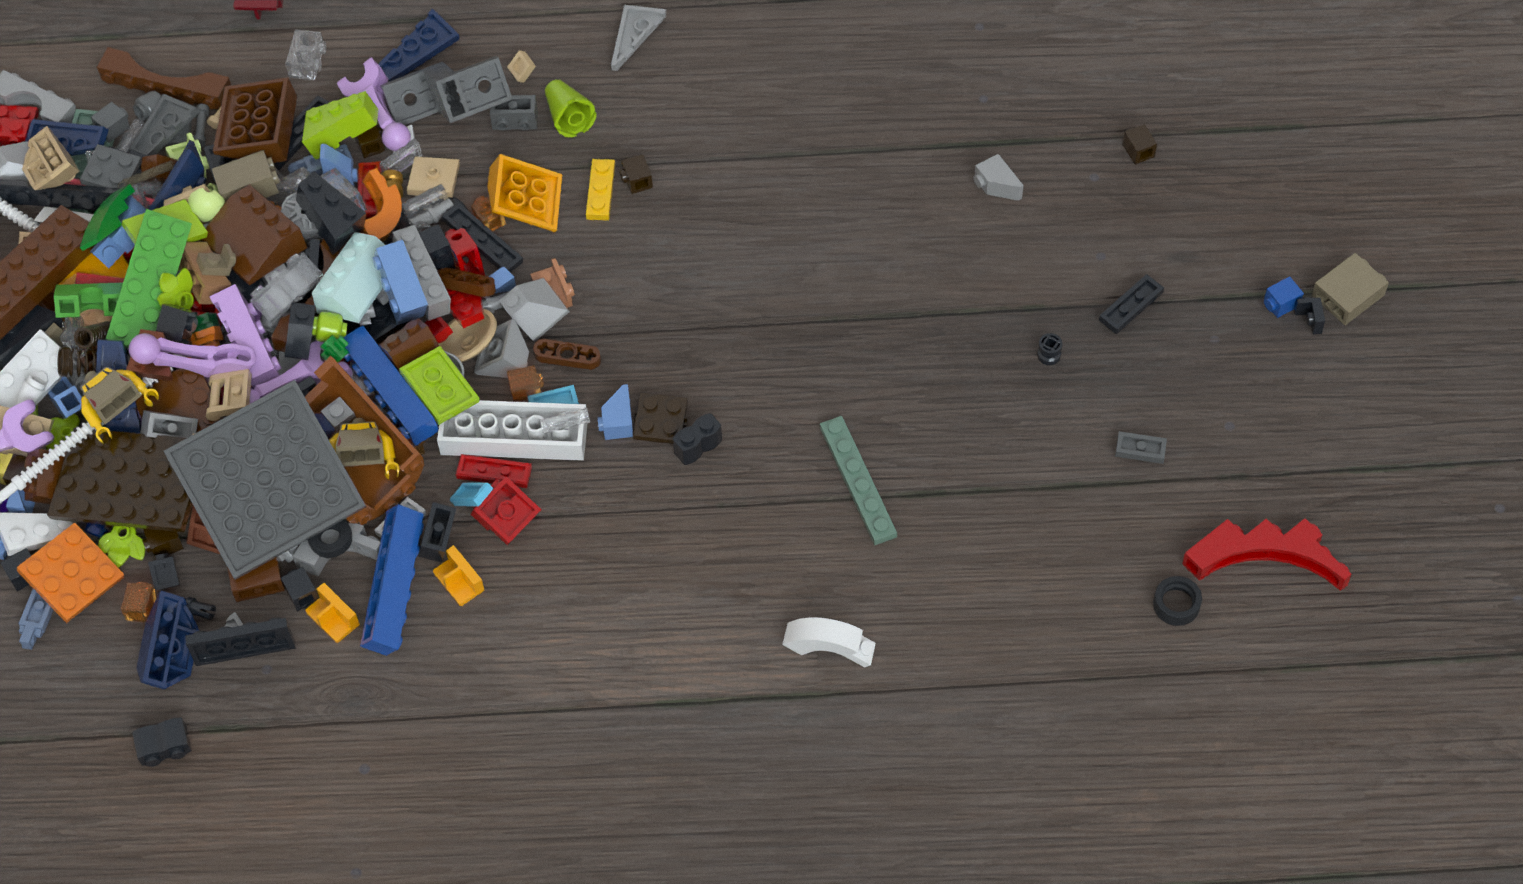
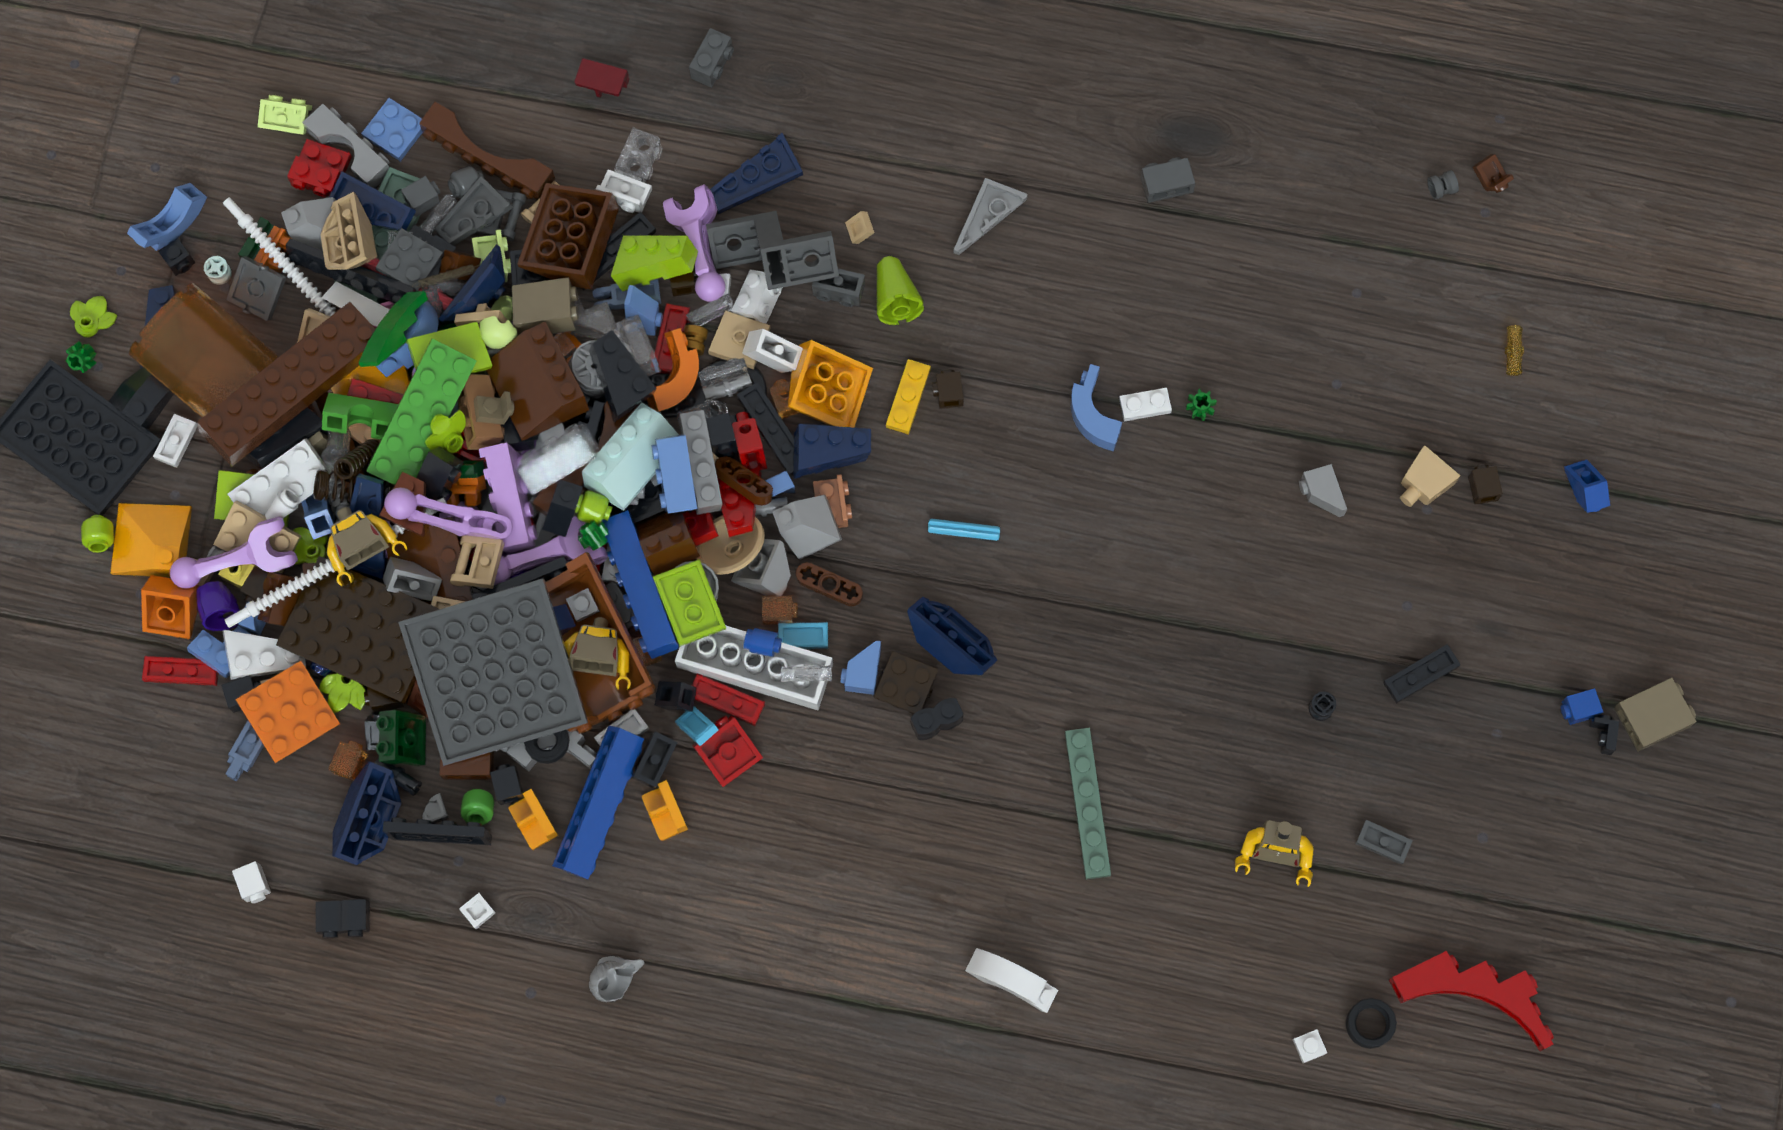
camera: 15 degrees right, 15 degrees up
(64, 731) = (251, 882): none -> white brick
(74, 81) = (393, 129): none -> medium blue plate
(187, 567) = (401, 738): none -> dark green plate
(274, 606) = (477, 806): none -> bright green head
(295, 705) = (477, 911): none -> white plate
(306, 84) = (627, 191): none -> white bracket
(442, 139) = (755, 299): none -> white bracket
(443, 730) = (612, 977): none -> light grey hair
(444, 474) = (675, 696): none -> black brick
(466, 173) = (772, 350): none -> white brick
(516, 402) = (762, 642): none -> blue brick
(538, 239) = (828, 447): none -> dark blue wedge
(680, 282) = (964, 529): none -> medium azure axle
(689, 369) = (950, 638): none -> dark blue wedge
(772, 172) = (1093, 425): none -> medium blue arch
(817, 149) = (1145, 404): none -> white plate
(867, 136) = (1198, 399): none -> green gear
(1045, 468) = (1278, 844): none -> torso
(1087, 149) = (1427, 478): none -> tan torso
(1126, 635) = (1309, 1046): none -> white plate
(1131, 38) = (1514, 350): none -> clear yellow pin
(1231, 125) = (1588, 486): none -> blue slope

